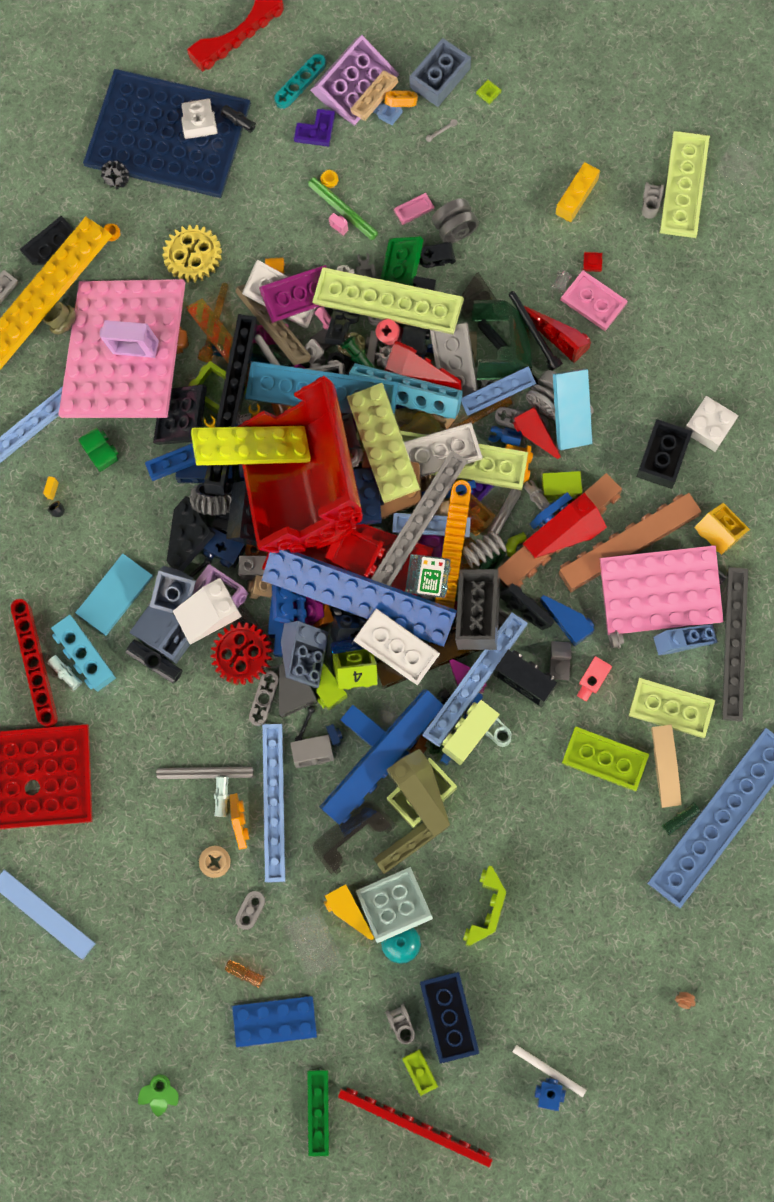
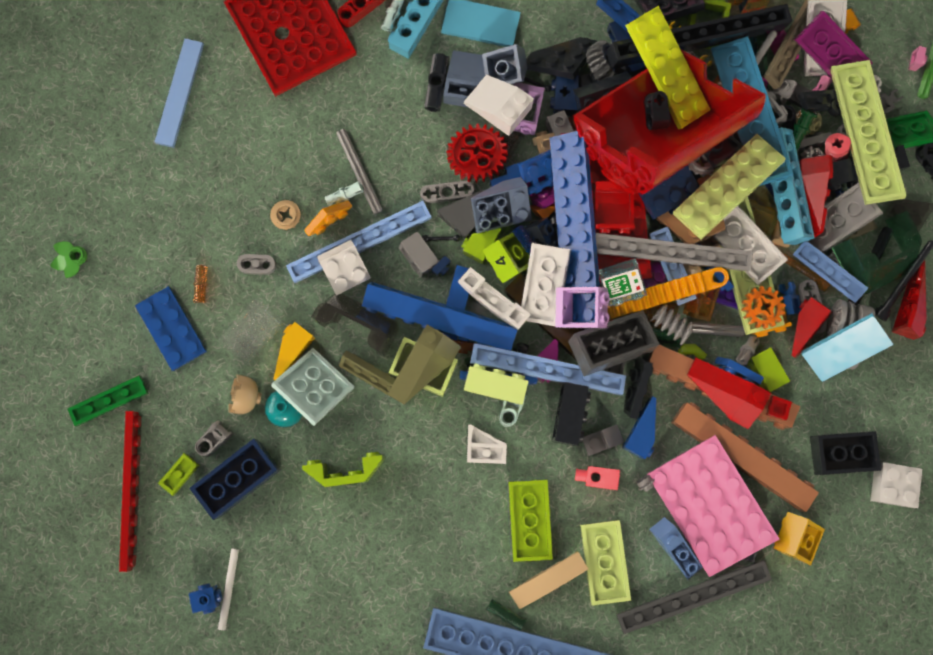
camera: 55 degrees right, 5 degrees up
(285, 474) = (657, 113): none -> black piece
(293, 826) = (343, 267): none -> white brick
(372, 975) = (244, 395): none -> tan cylinder
(389, 700) = (493, 300): none -> white slope
(429, 638) = (564, 307): none -> lavender window
(497, 463) = (767, 314): none -> orange gear
(520, 770) = (484, 447): none -> white wing
(600, 492) = (779, 408): none -> red plate

